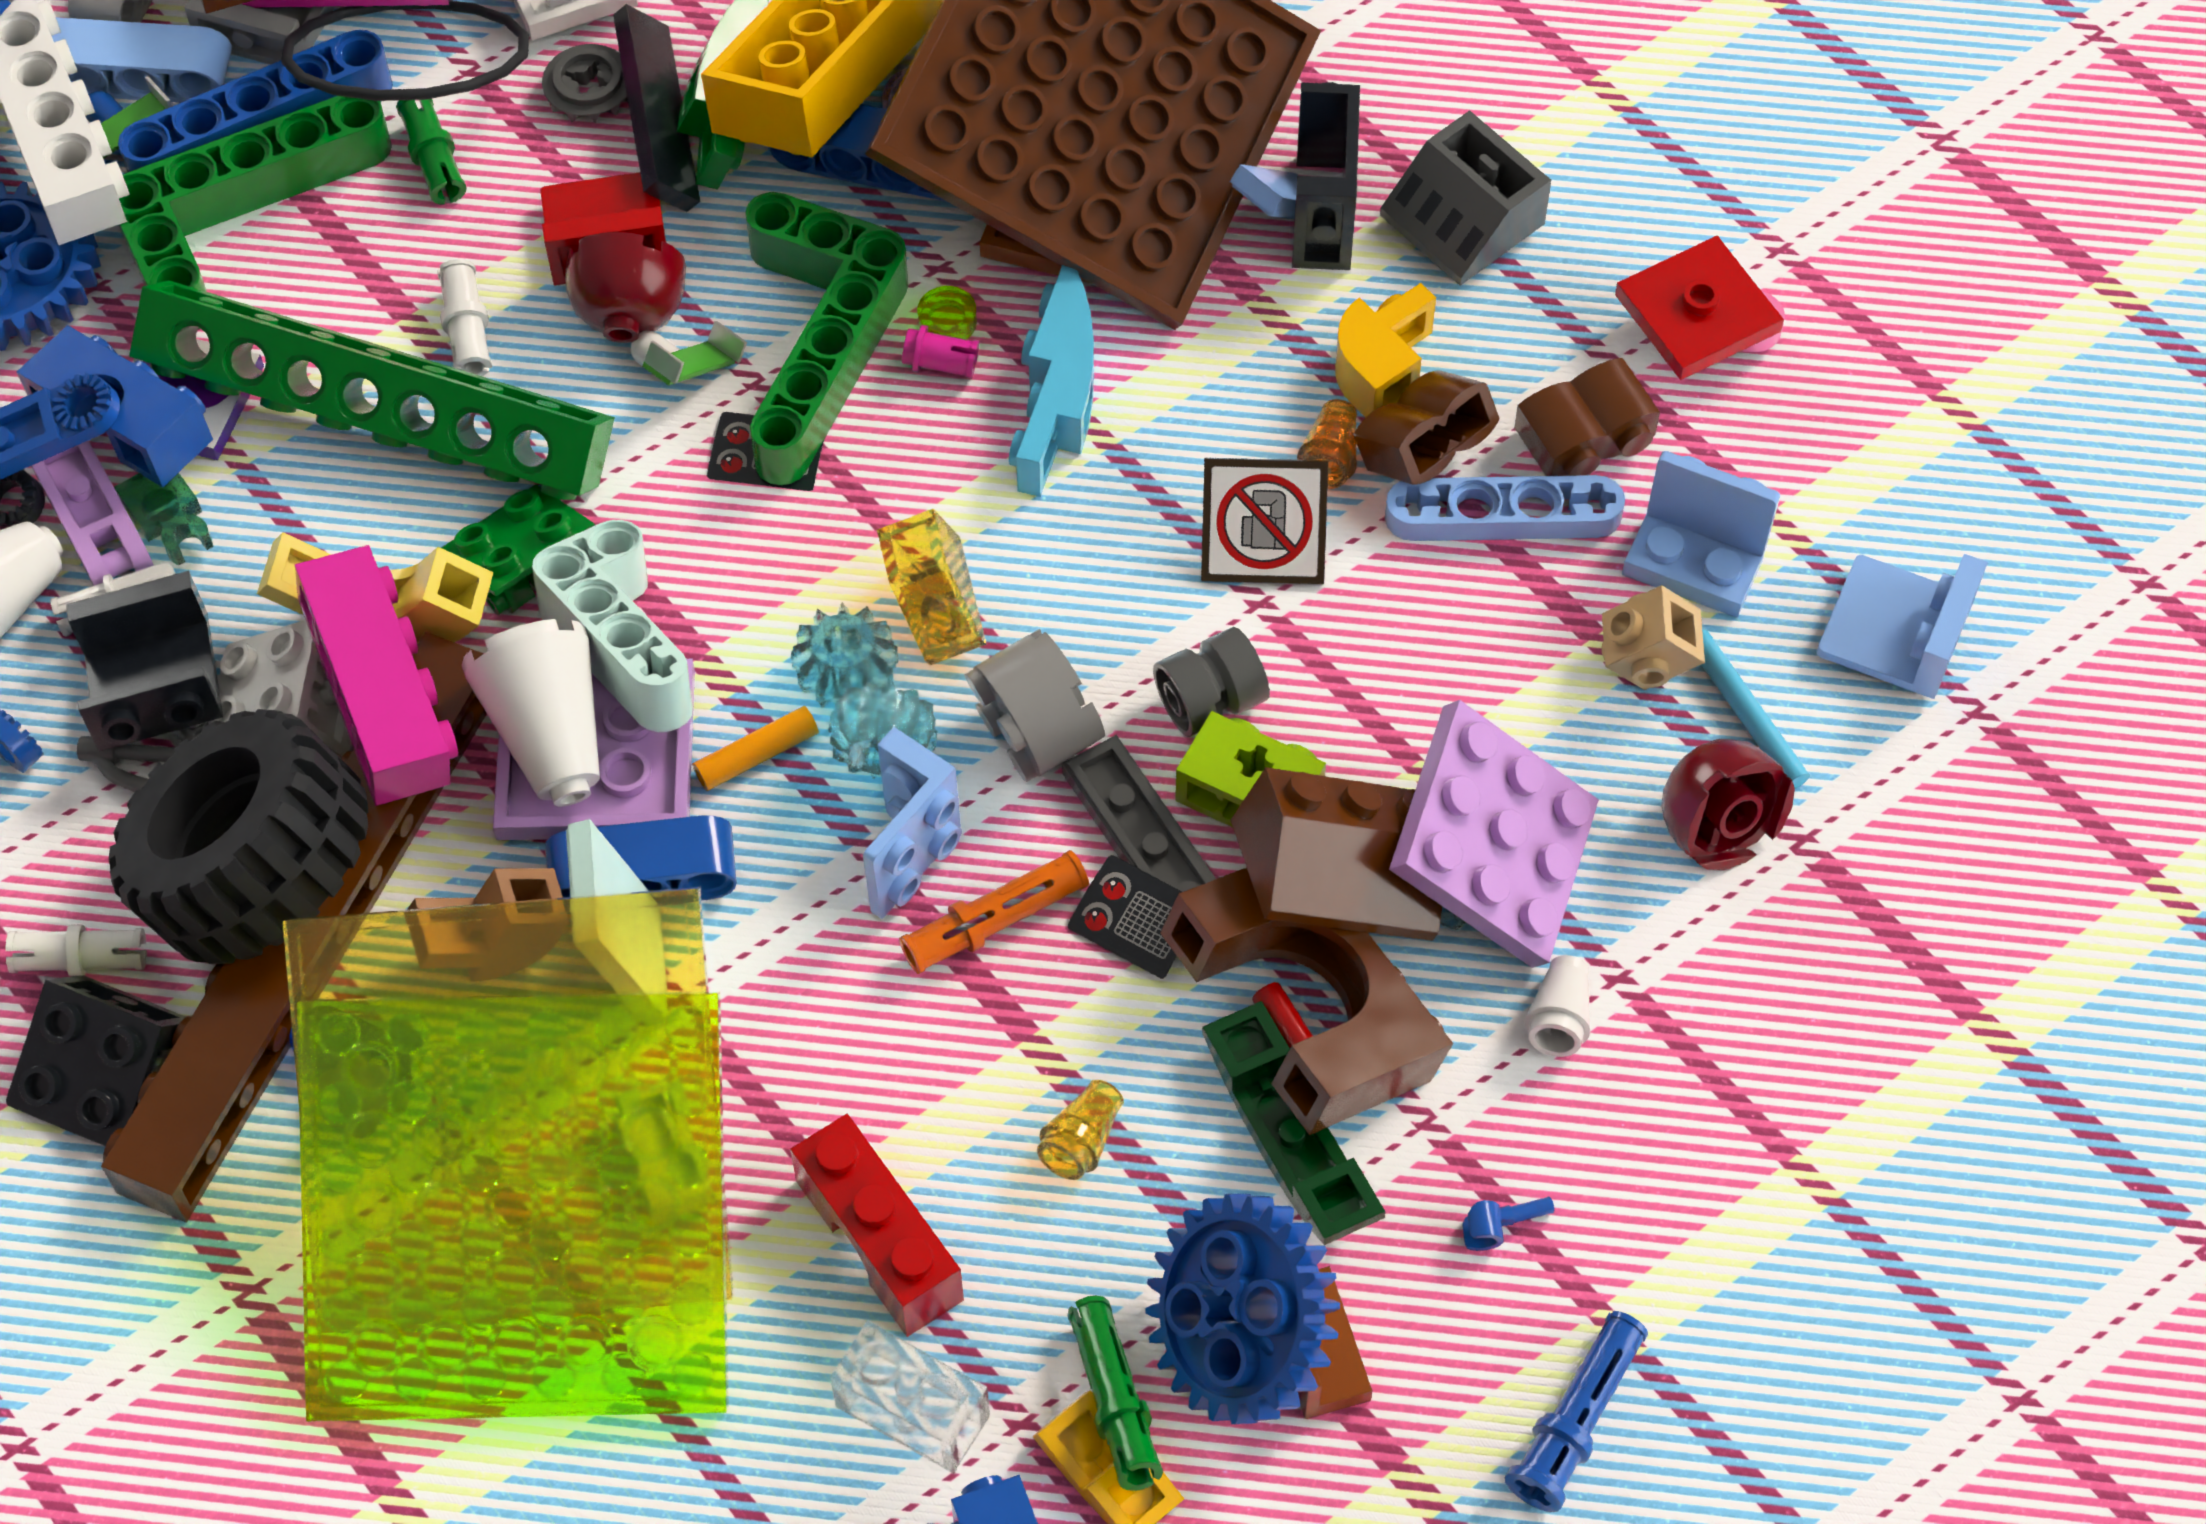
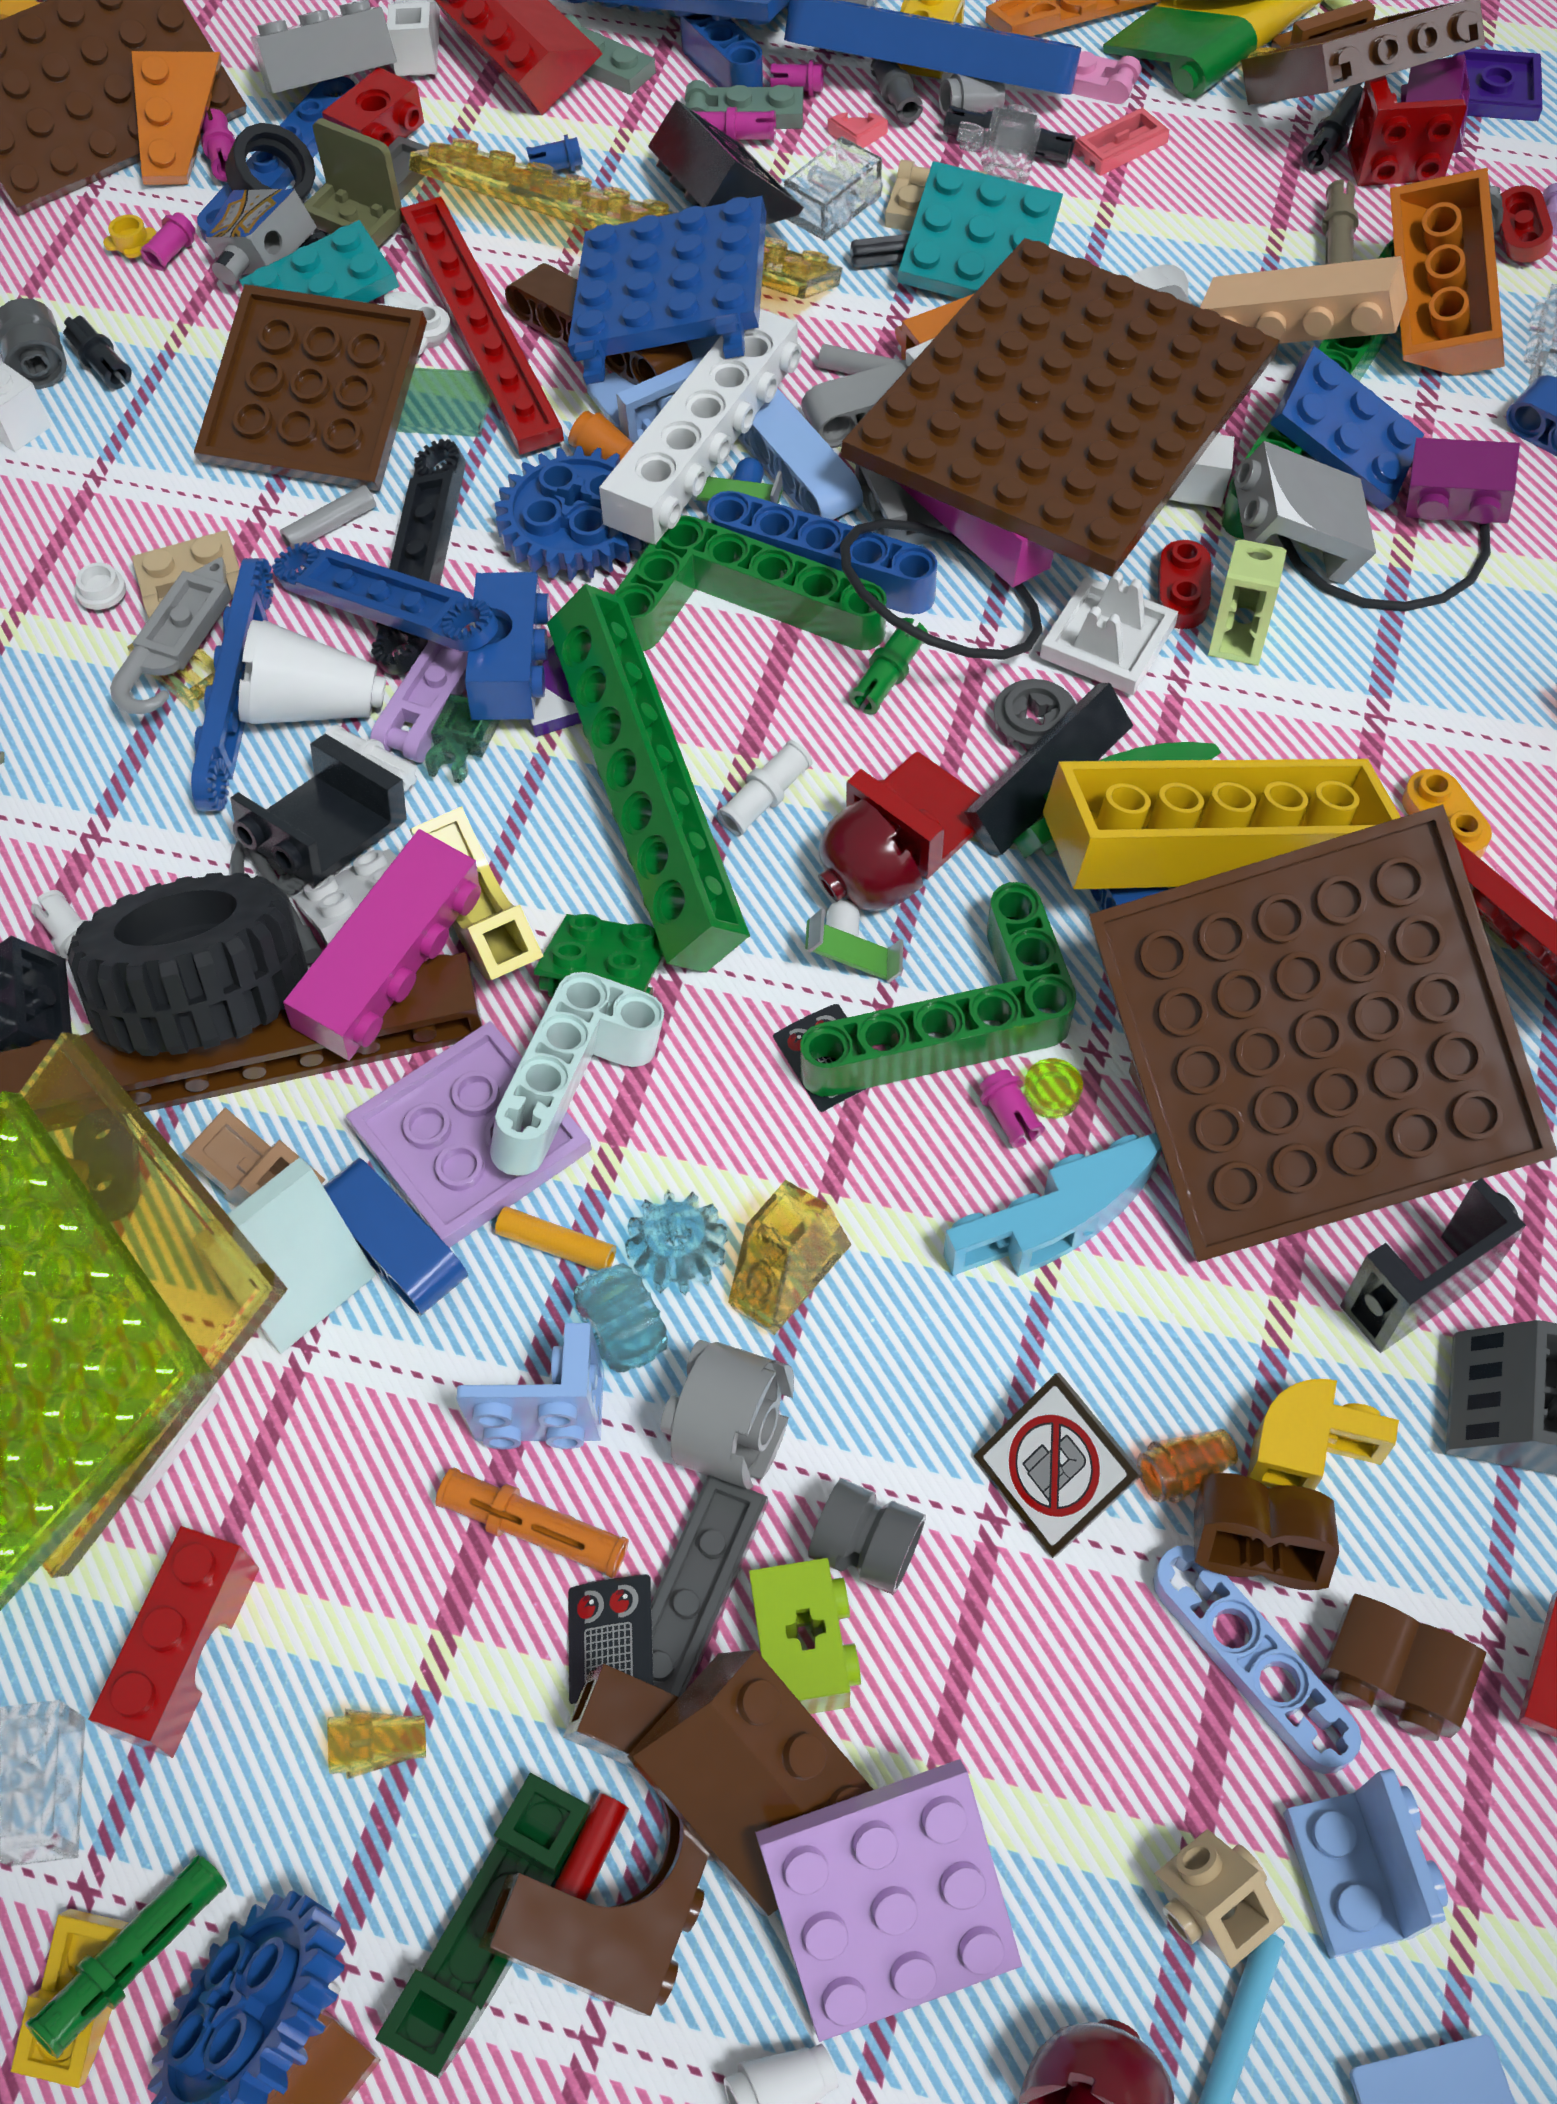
camera: 55 degrees right, 0 degrees up
(542, 704) = (443, 1072): white cone -> none
(1268, 189) = (1370, 1225): light blue tile -> none

